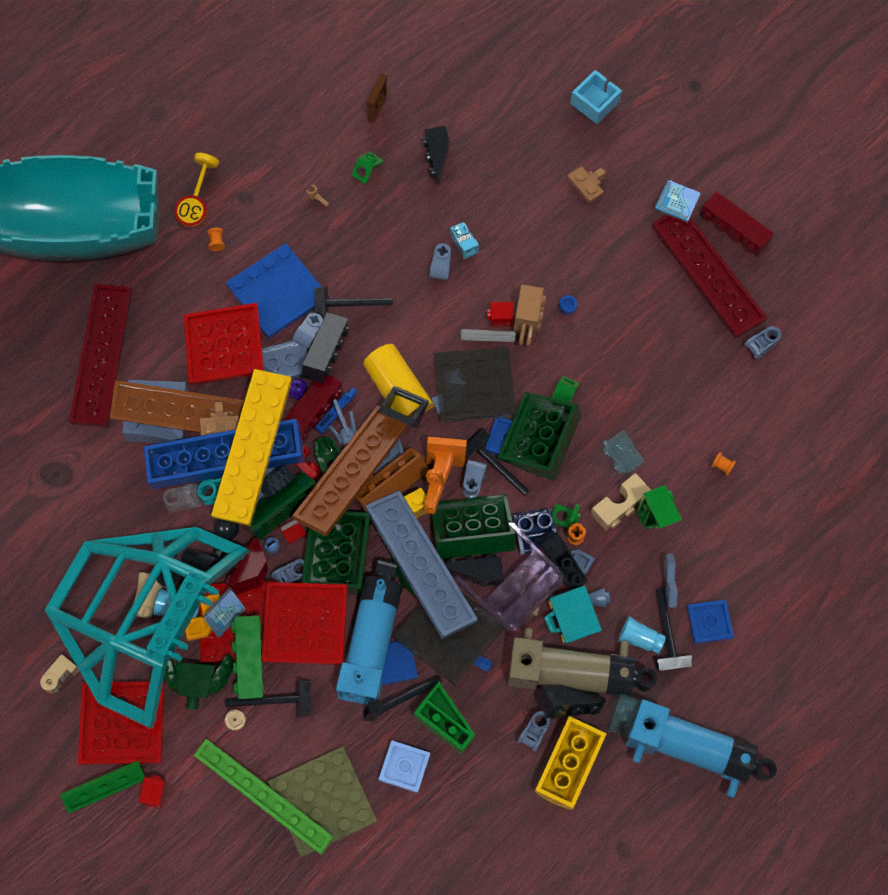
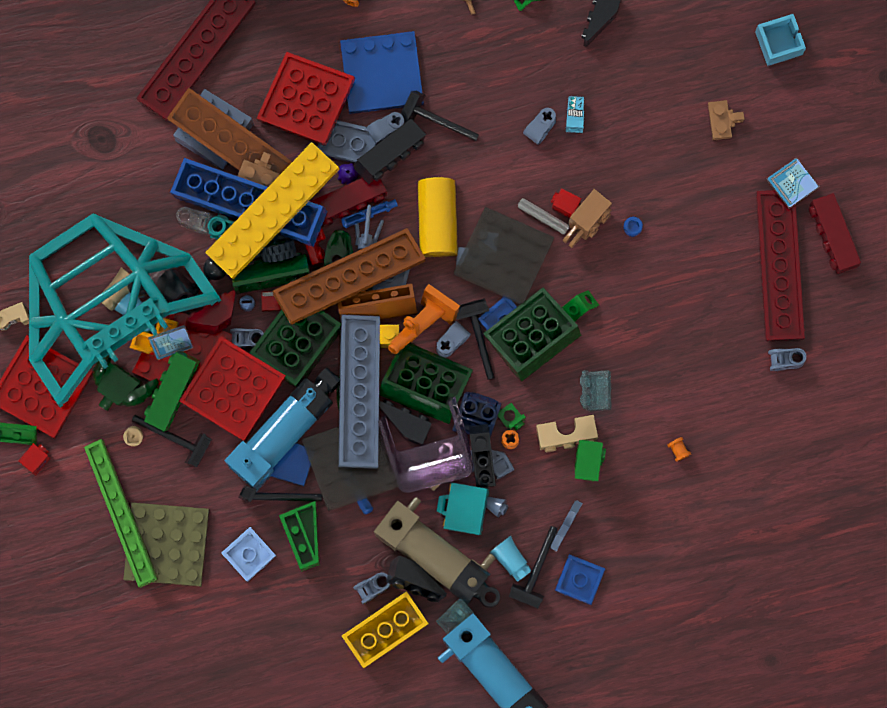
camera: 35 degrees right, 10 degrees up
(416, 419) = (423, 260): black tile -> none

